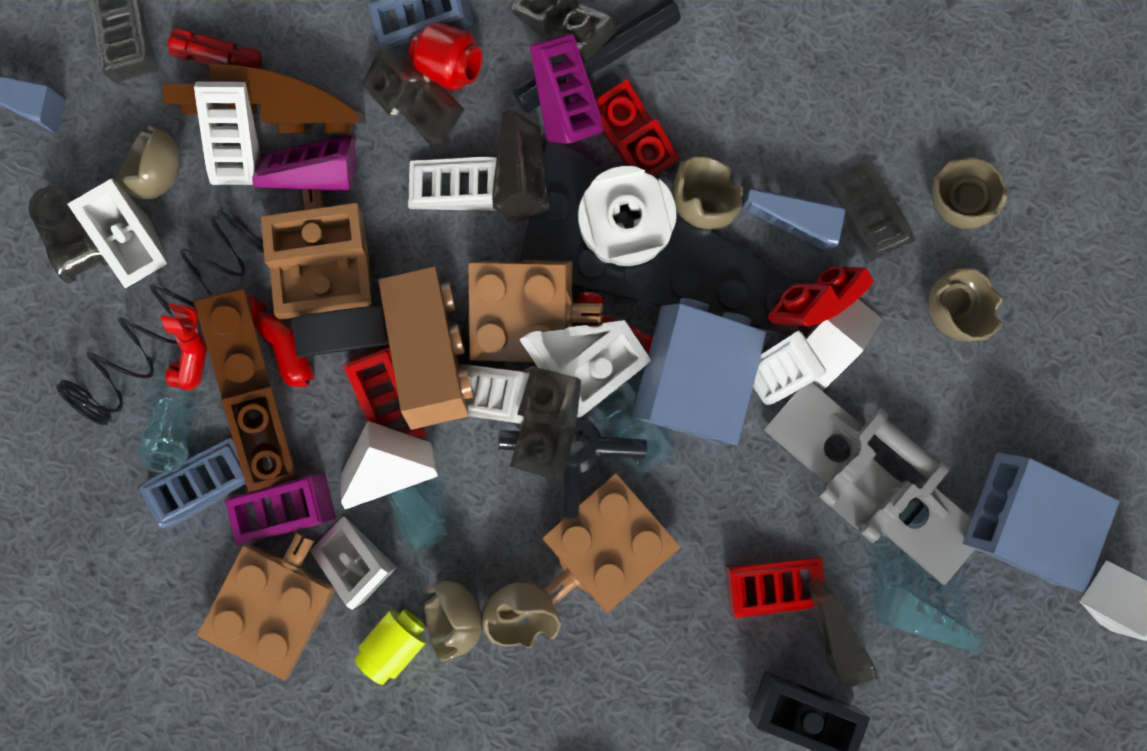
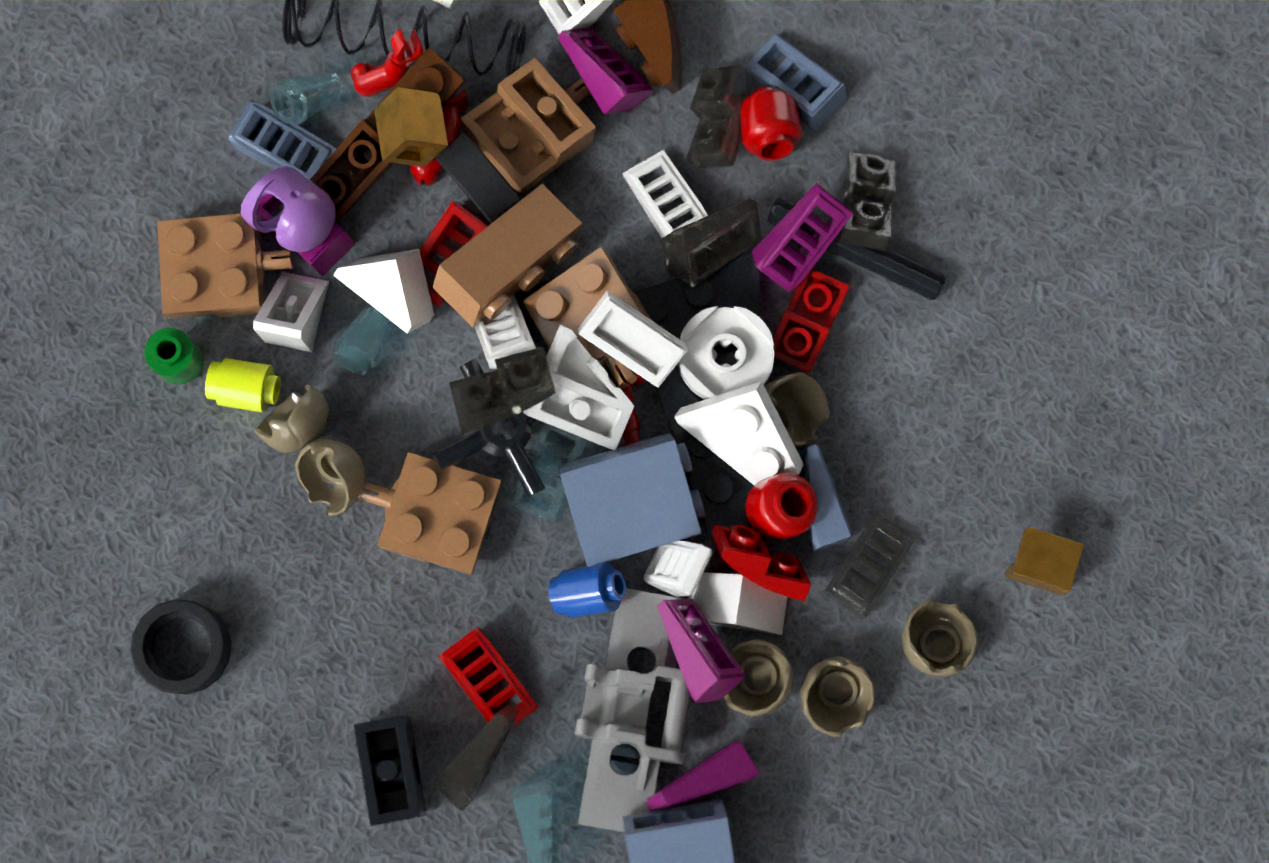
camera: 60 degrees right, 5 degrees down
(256, 361) = (410, 127): none -> pearl gold panel
(275, 500) = (306, 213): none -> medium lavender helmet
(339, 682) = (185, 363): none -> green brick
(569, 285) = (632, 339): none -> white tile
(705, 242) = (743, 432): none -> white wing
(754, 458) = (587, 590): none -> blue brick
(786, 250) = (781, 506): none -> red head
(866, 394) = (701, 654): none -> magenta slope
(912, 348) = (770, 674): none -> dark tan hair
(960, 64) = (1046, 561): none -> pearl gold panel
(970, 455) = (718, 772): none -> magenta slope

